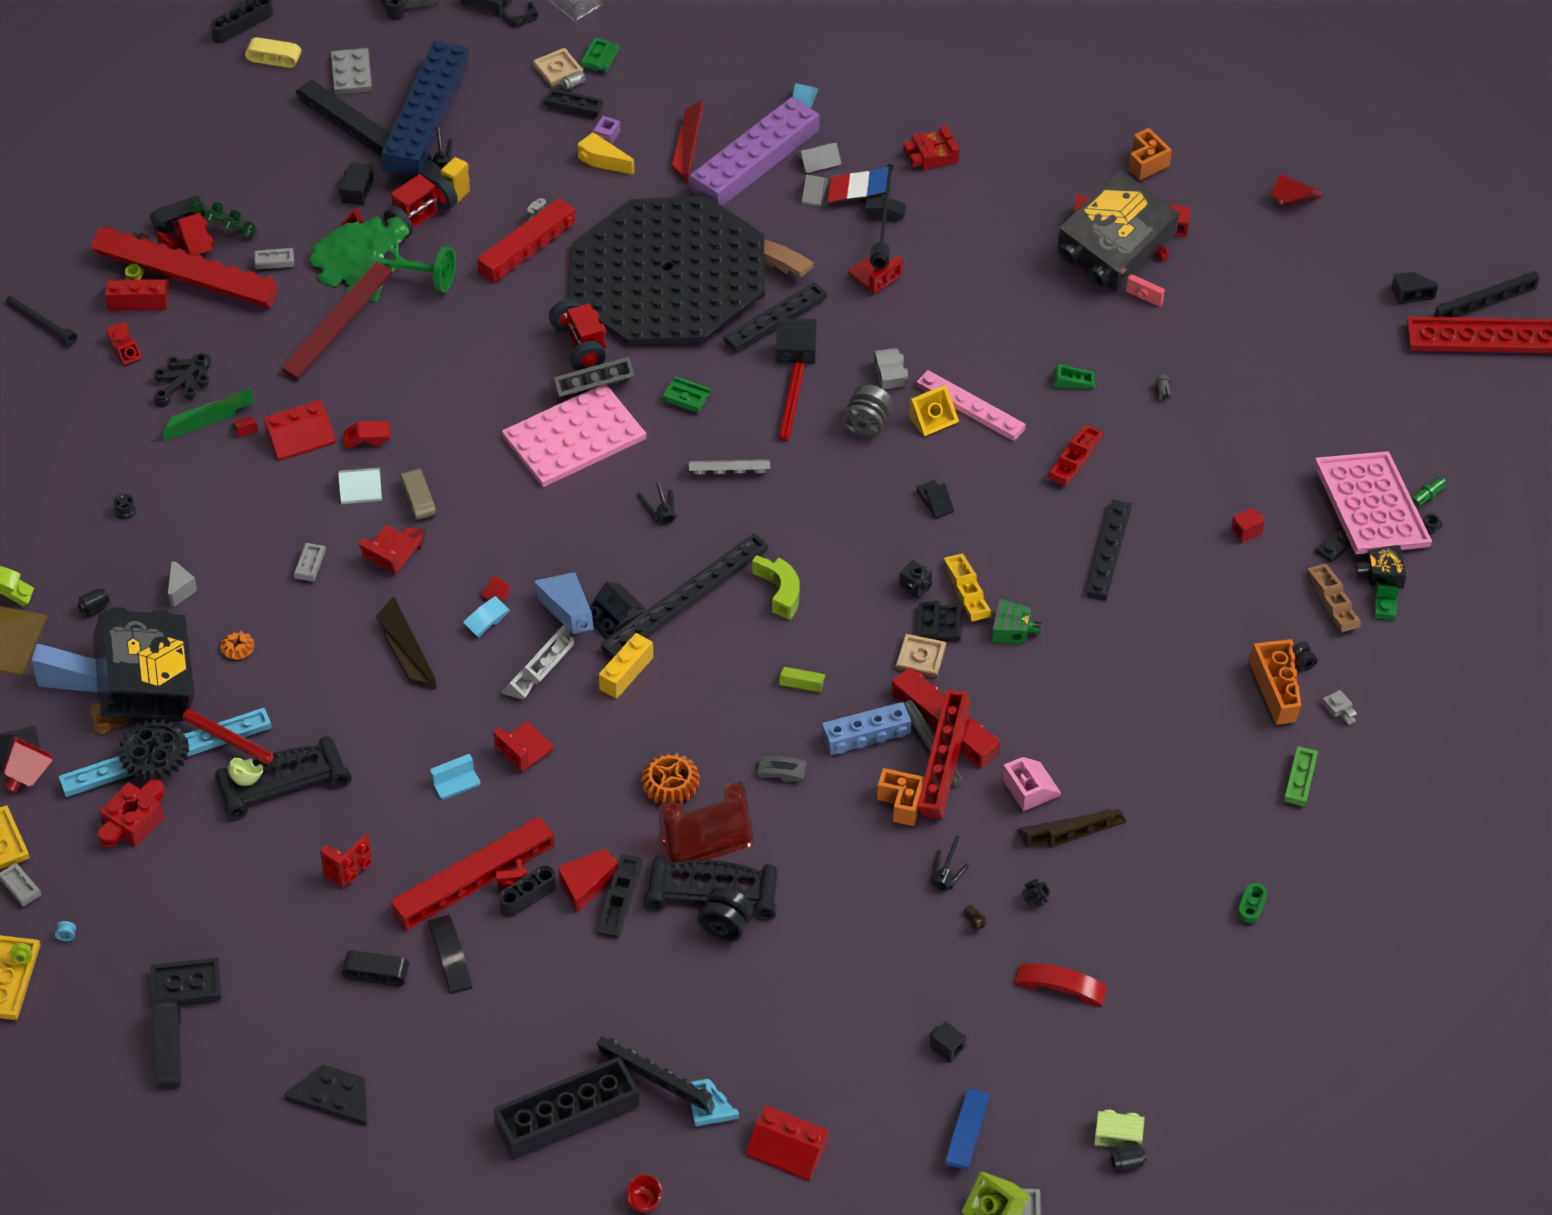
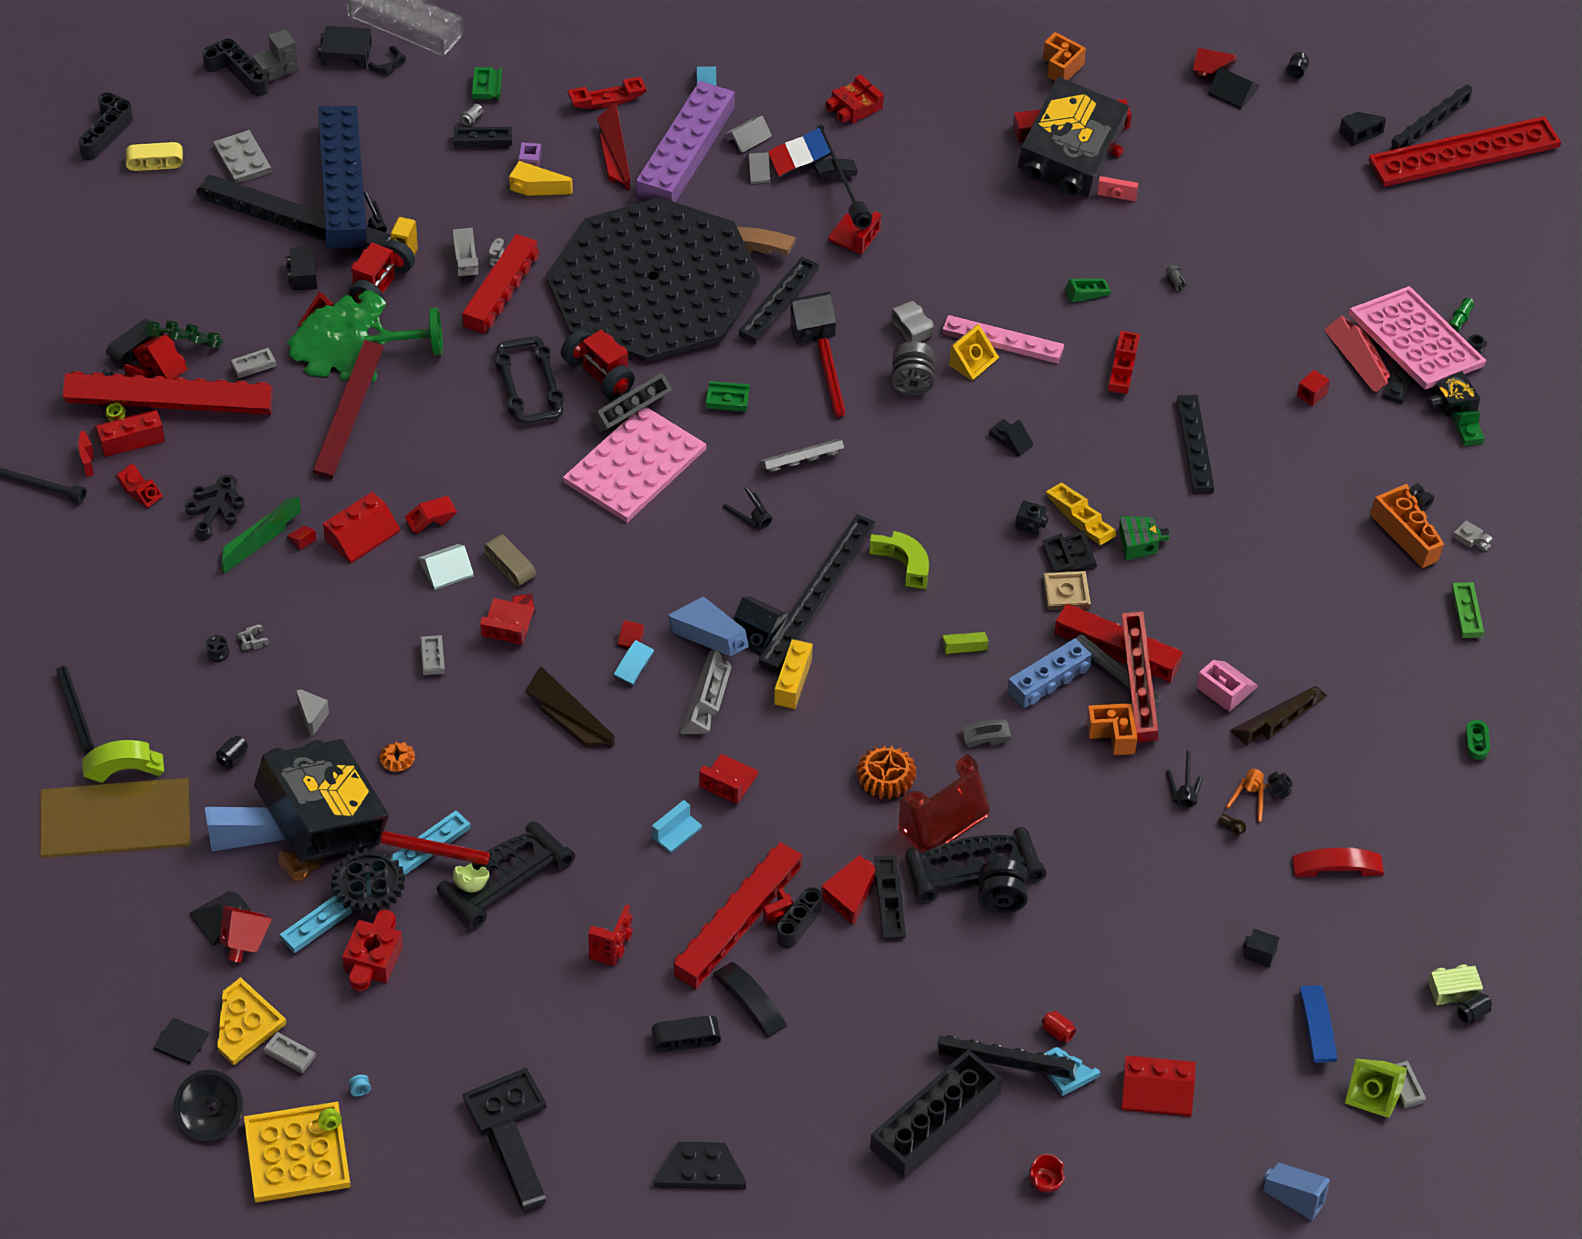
camera: 20 degrees left, 0 degrees up
(90, 303) = (86, 454): none -> red slope
(160, 499) = (253, 643): none -> light grey piece
(507, 204) = (465, 252): none -> light grey arch
(528, 356) = (515, 403): none -> black bar
(556, 66) = (448, 105): tan tile -> none
(708, 93) = (605, 98): none -> red slope
(720, 1060) = (1058, 1026): none -> red brick
(1012, 884) = (1252, 783): none -> orange plant
(1304, 221) = (1232, 88): none -> black slope
(1311, 502) = (1359, 351): none -> coral wedge
(1333, 598) = (1417, 433): medium nougat slope -> none
(1376, 215) = (1297, 65): none -> black wheel

